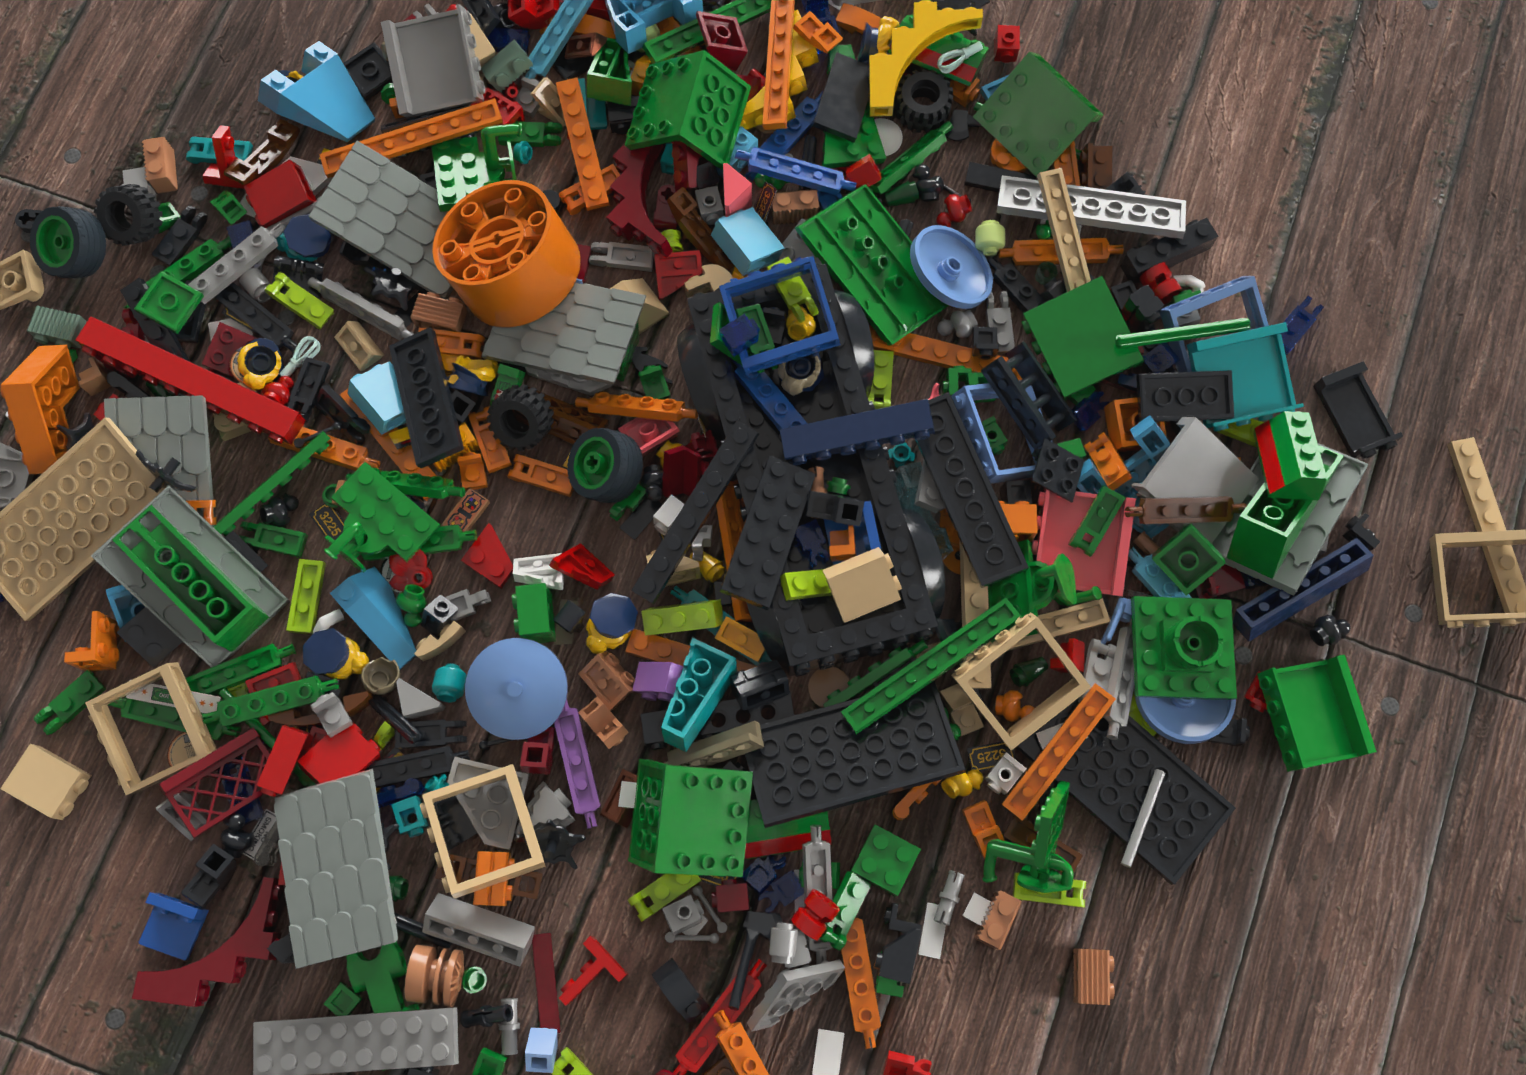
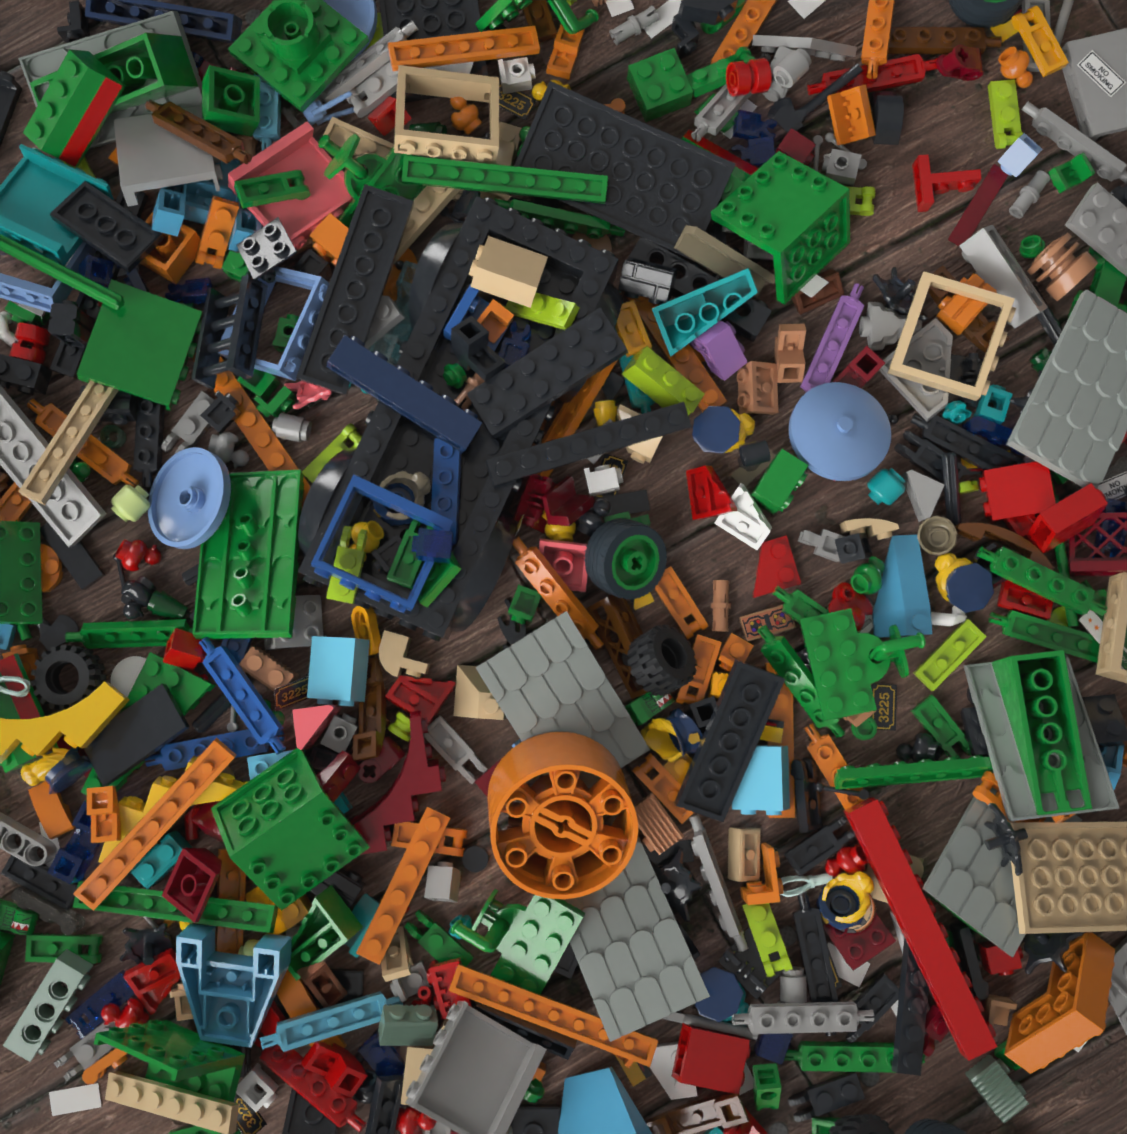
camera: 140 degrees left, 10 degrees up
(169, 302) = (887, 1022): green plate -> none
(323, 324) = (755, 891): none -> orange bracket
(331, 714) = (1001, 527): light grey bracket -> none
(486, 1016) = (1042, 210): black pin -> none
(509, 497) = (720, 605): none -> nougat pin
(557, 166) = (443, 883): none -> light grey brick
(709, 963) = (851, 115): none -> orange bracket
(757, 44) = (160, 860): none -> teal brick
(927, 375) = (292, 427): none -> light grey brick

